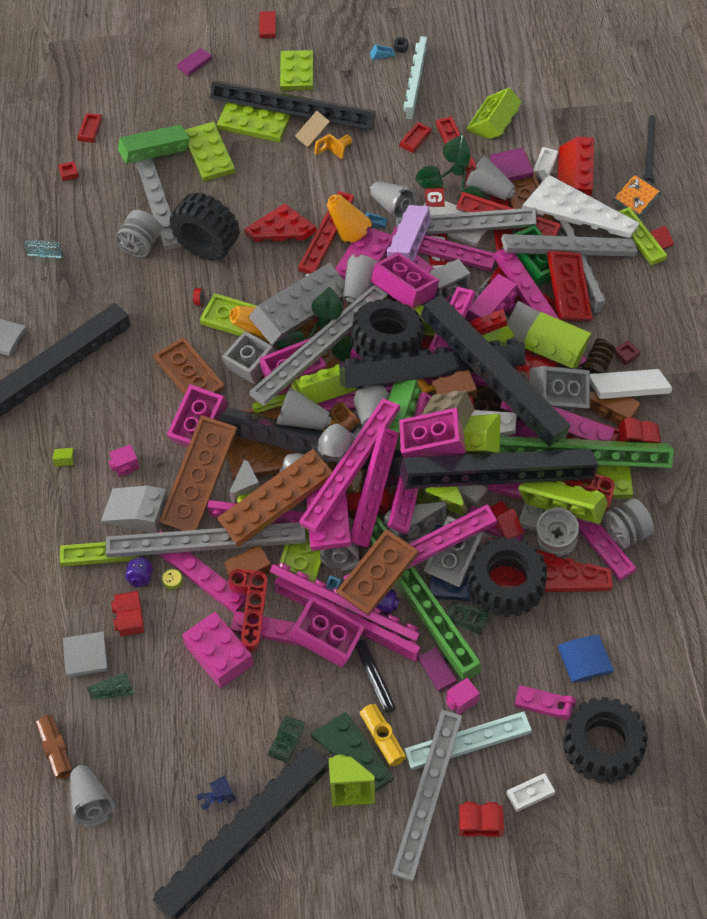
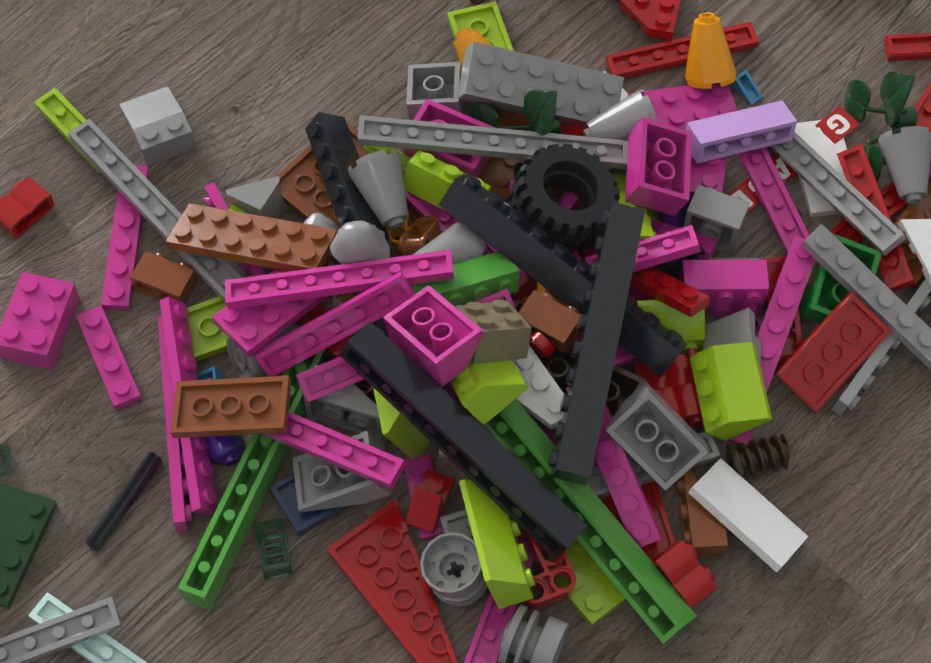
camera: 50 degrees right, 5 degrees up
(63, 457) = (170, 15): lime slope -> none
(123, 460) = (206, 71): dark pink brick -> none
(139, 572) = (78, 181): dark purple head -> none
(172, 579) = (98, 219): light yellow tile -> none
(187, 367) = (372, 51): dark orange plate -> none
(194, 404) = (300, 95): dark pink brick -> none
(198, 474) = (235, 148): dark orange plate -> none
(251, 611) = (99, 315): red beam -> none
(326, 631) = (131, 410): dark pink brick -> none
(388, 745) = (42, 574): yellow piece -> none
(394, 197) = (792, 83): light grey cone -> none
(437, 669) = (177, 560): magenta tile -> none
(462, 696) = (156, 610): dark pink brick -> none
(513, 554) = (338, 516): black tyre -> none
(627, 352) = (799, 483): dark red plate -> none

